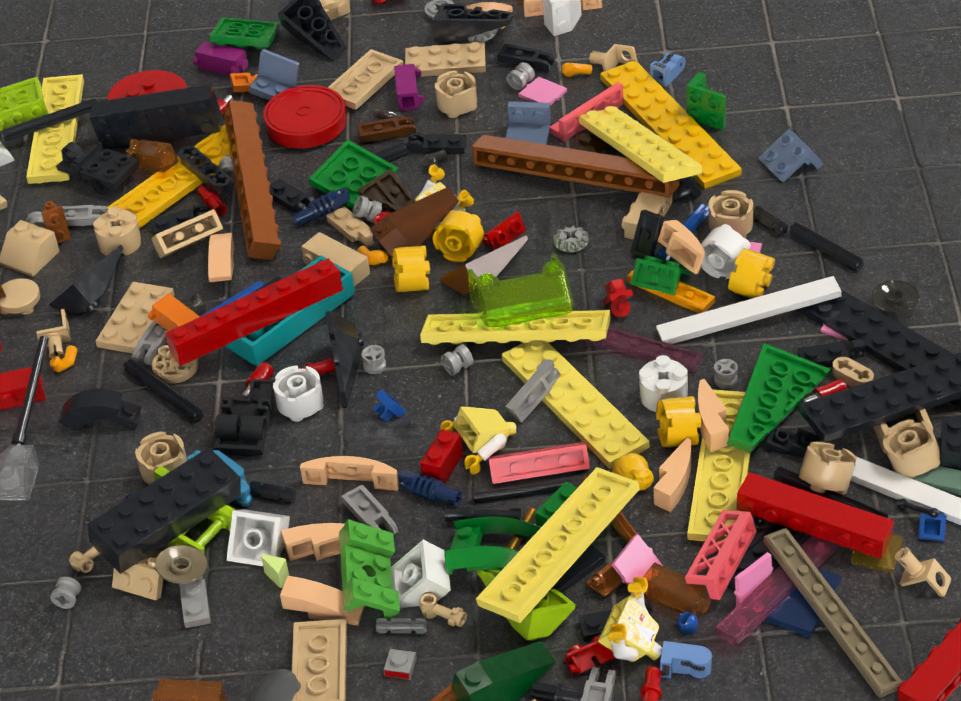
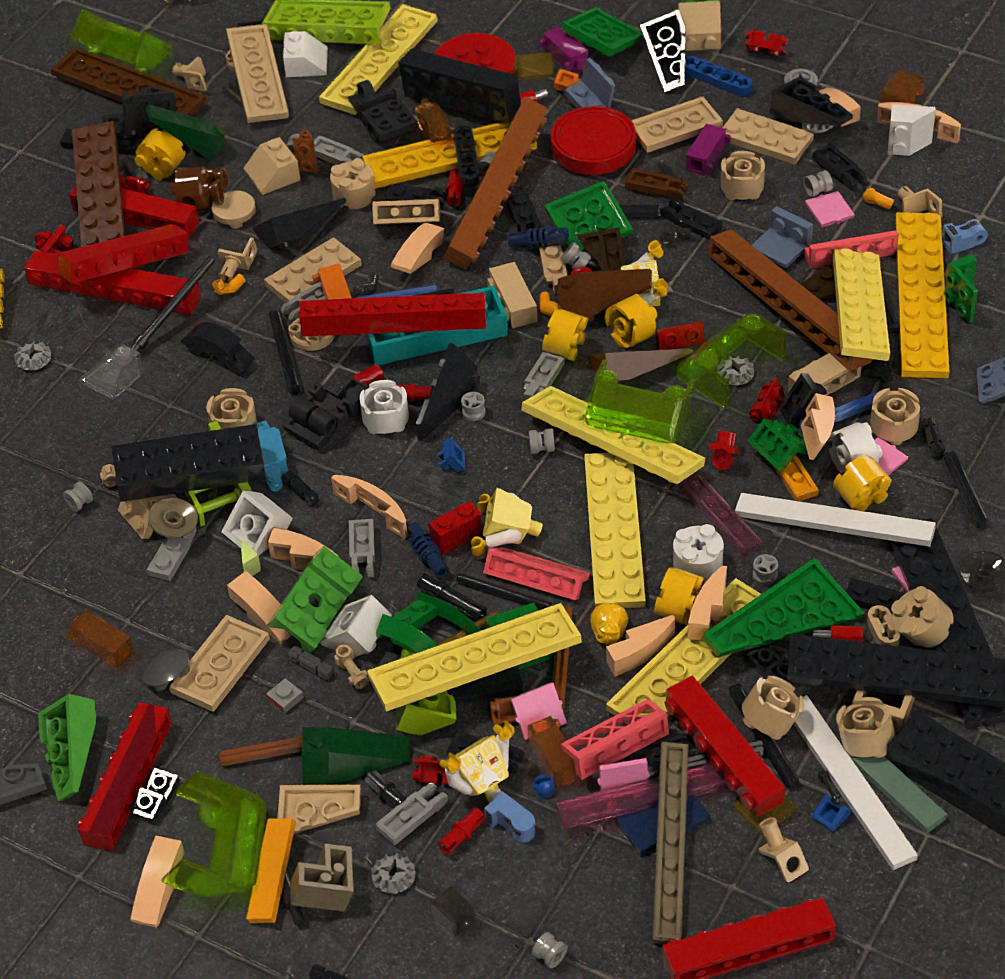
camera: 30 degrees right, 5 degrees up
(47, 120) = (390, 49): black axle -> none
(202, 78) = (534, 66): none -> clear yellow piece
(366, 32) = (738, 83): none -> blue beam
(413, 311) = (543, 374): none -> light grey hinge
(533, 391) = (578, 503): light grey hinge -> none
(546, 239) = (705, 359): none -> clear neon green windscreen
(617, 251) = (768, 401): none -> red hinge
(883, 348) = (922, 617): none -> tan brick

